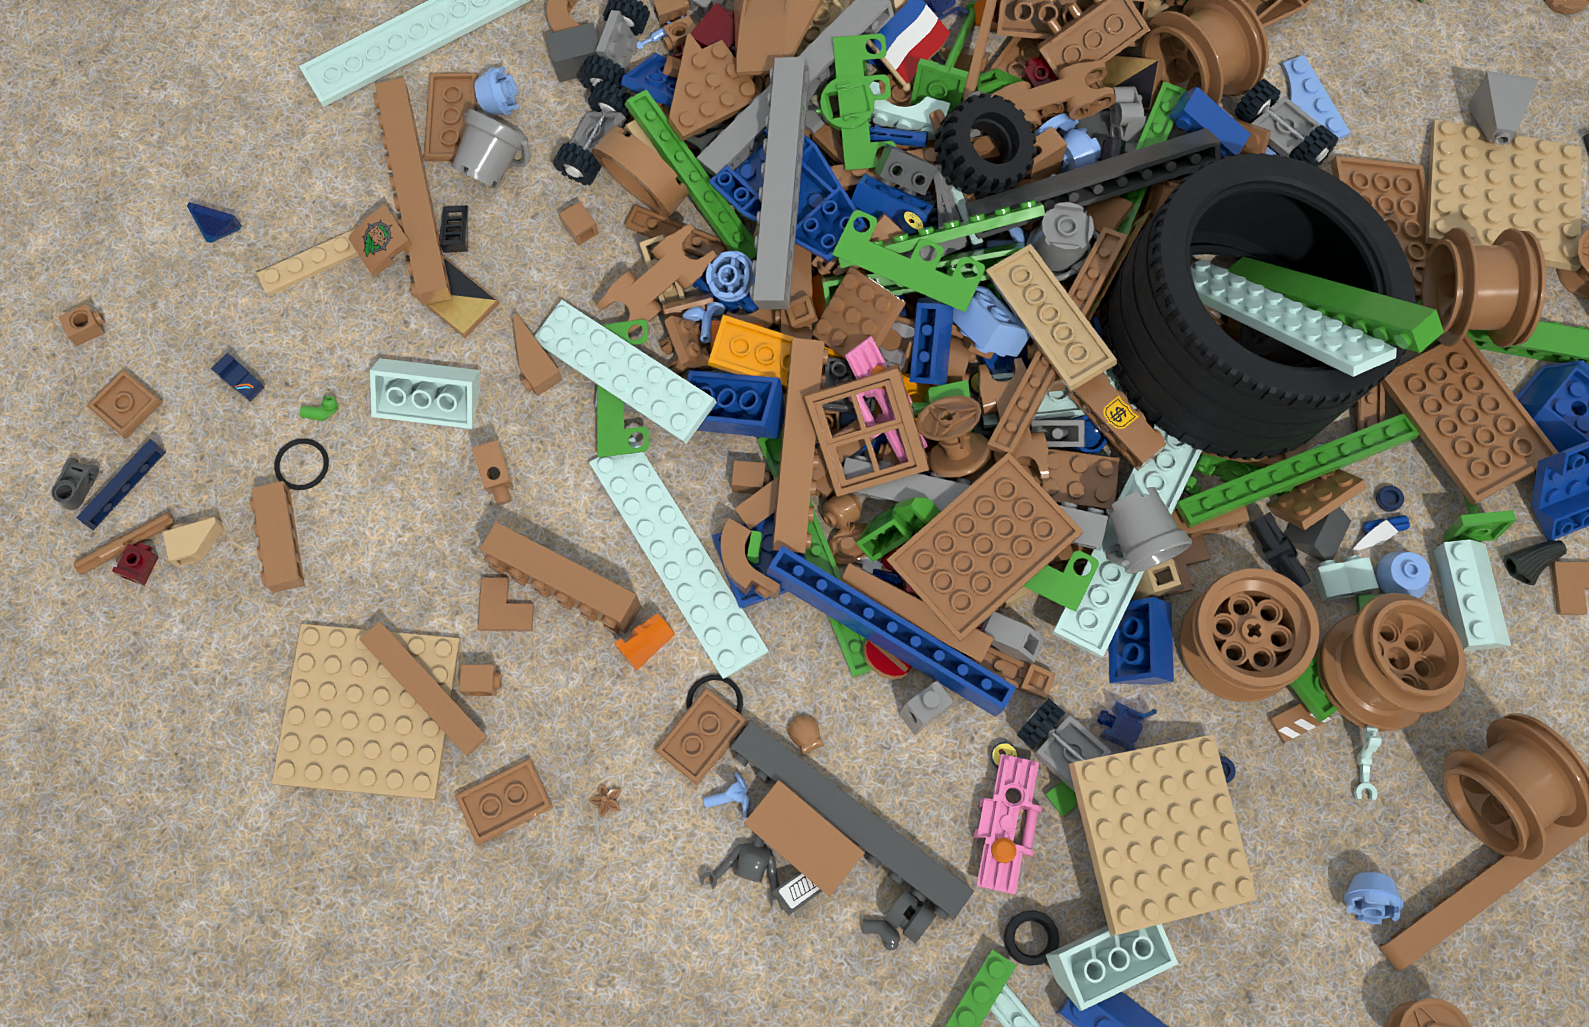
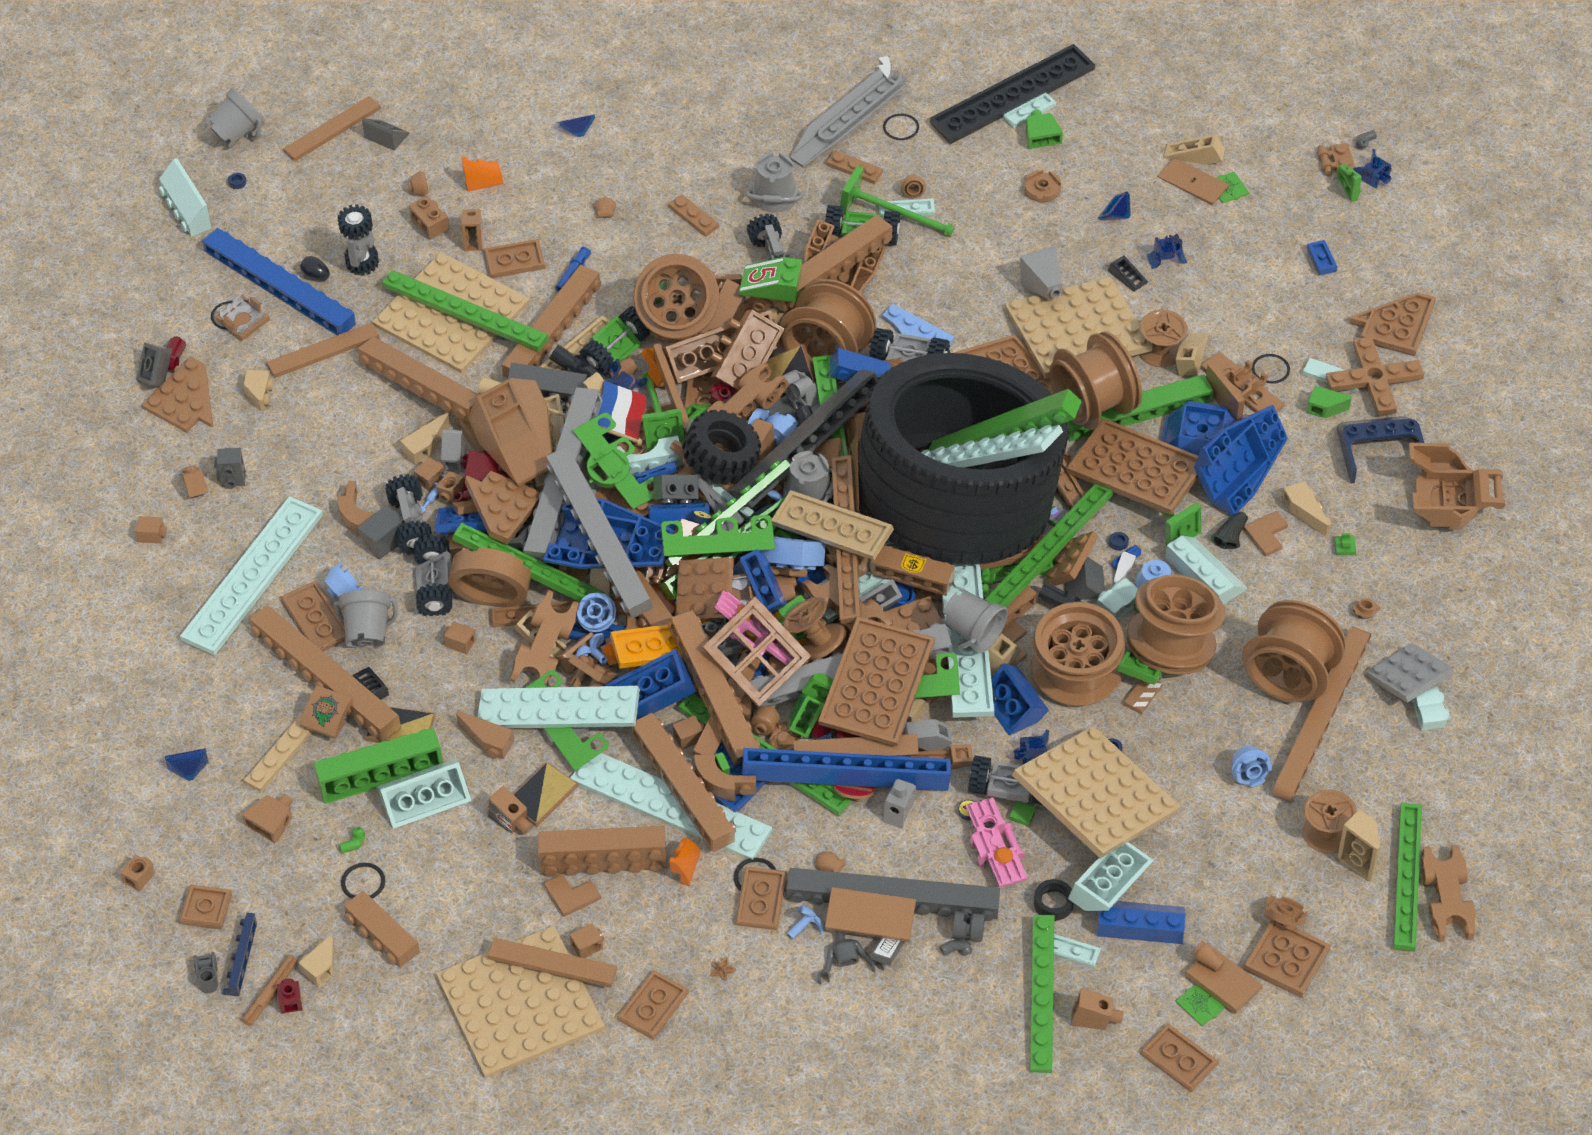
camera: 30 degrees left, 20 degrees down
(237, 377) = (280, 849): dark blue leg -> none
(252, 333) = (269, 817): none -> medium nougat torso
(391, 334) = (377, 764): none -> bright green brick
(548, 464) = (544, 792): none -> tile
(699, 543) = (683, 782): none -> medium nougat brick
(802, 312) = (662, 608): medium nougat plate -> none
(1337, 429) = (1057, 514): none -> tile
(1364, 759) = (1193, 679): light aqua piece -> none

